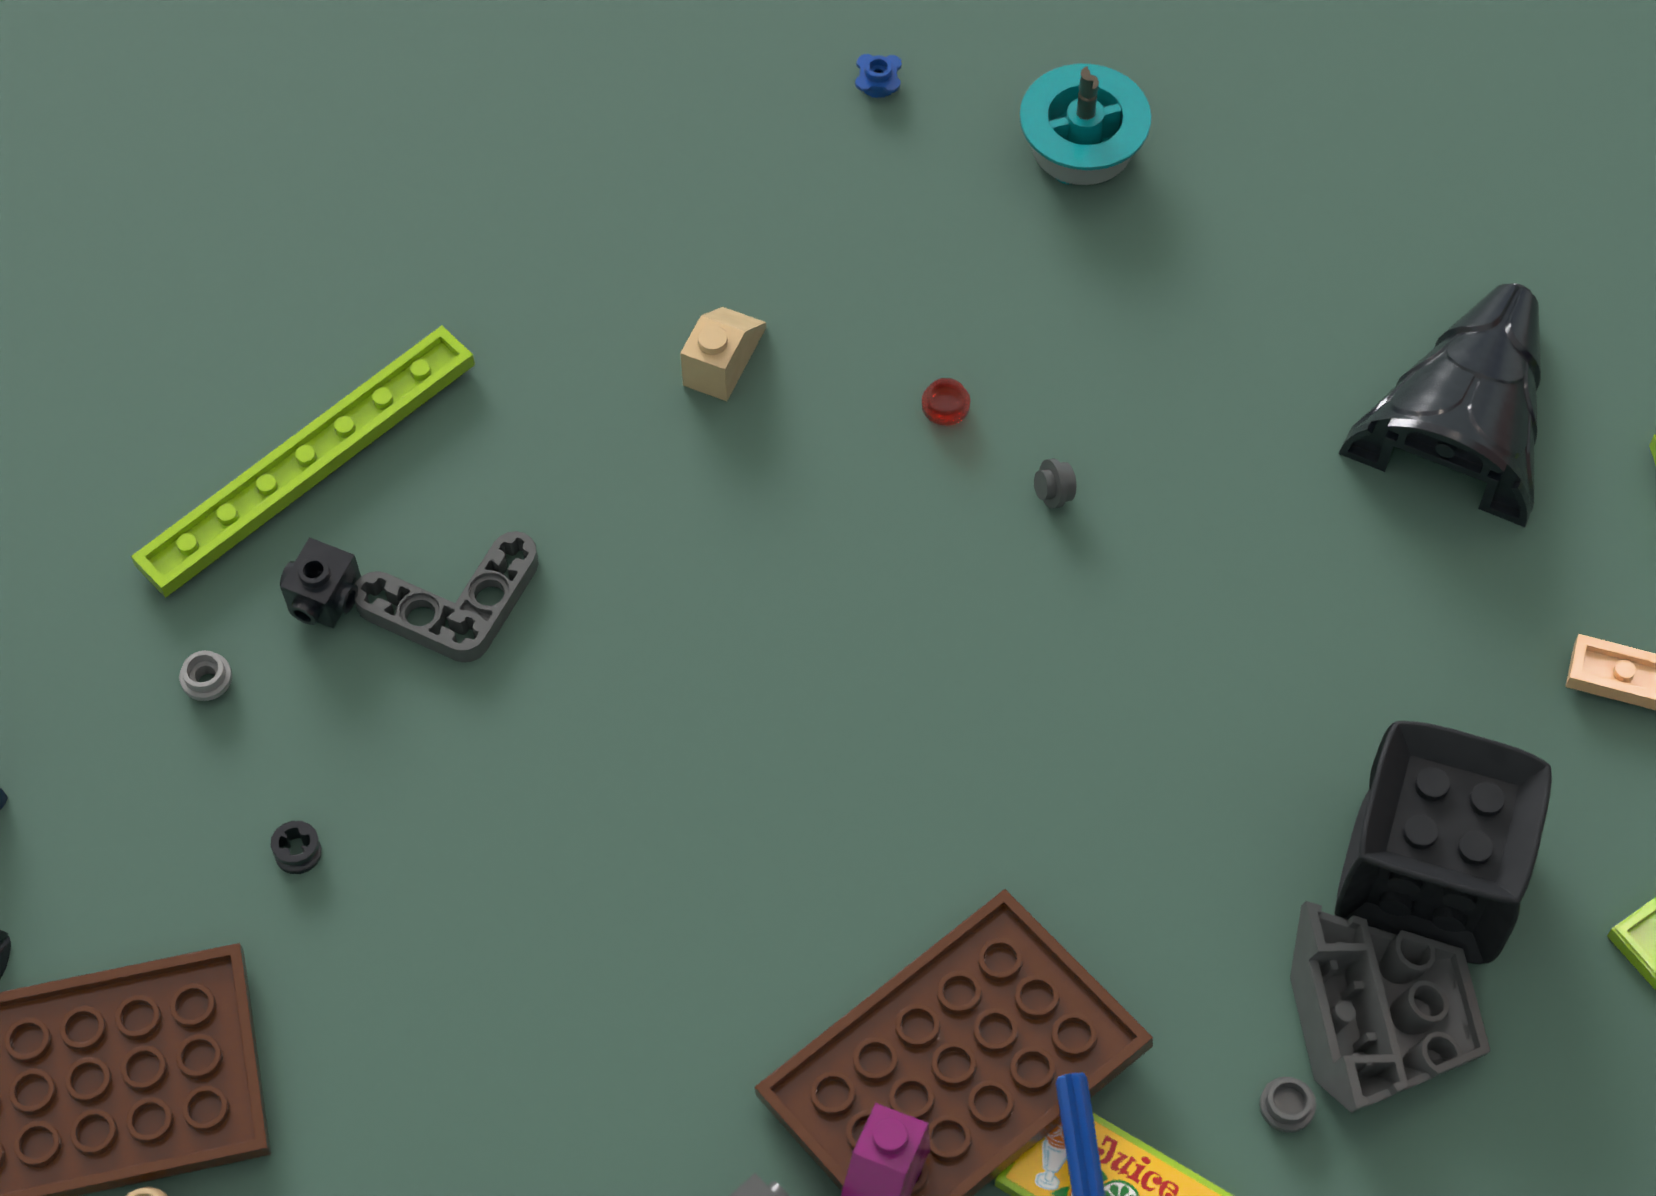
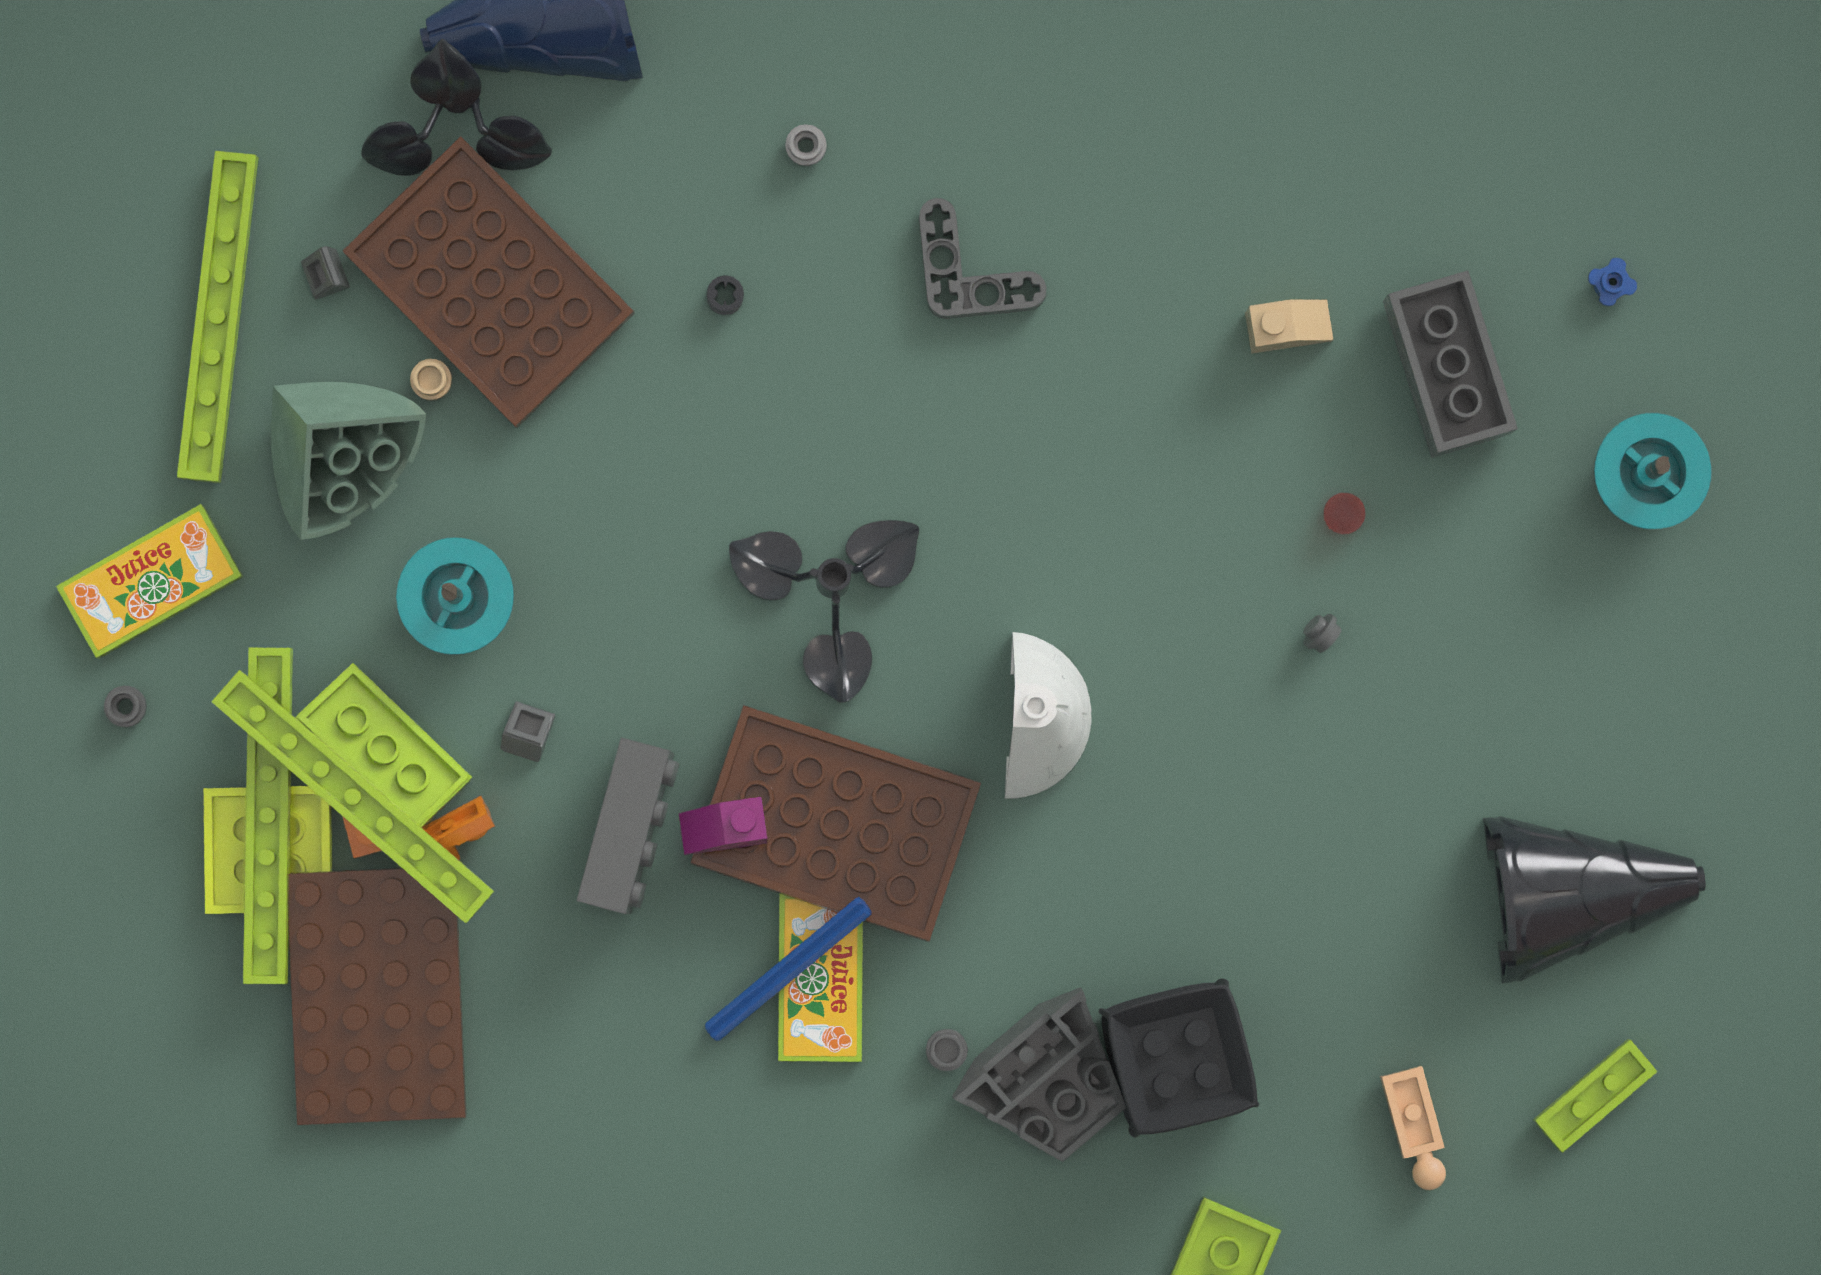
camera: 55 degrees right, 25 degrees up
(302, 461) = (1010, 92): lime plate -> none
(320, 584) = (922, 164): black brick -> none
(679, 855) = (879, 549): none -> black plant
(862, 228) = (1449, 364): none -> dark grey brick
(979, 742) = (1048, 717): none -> white cone

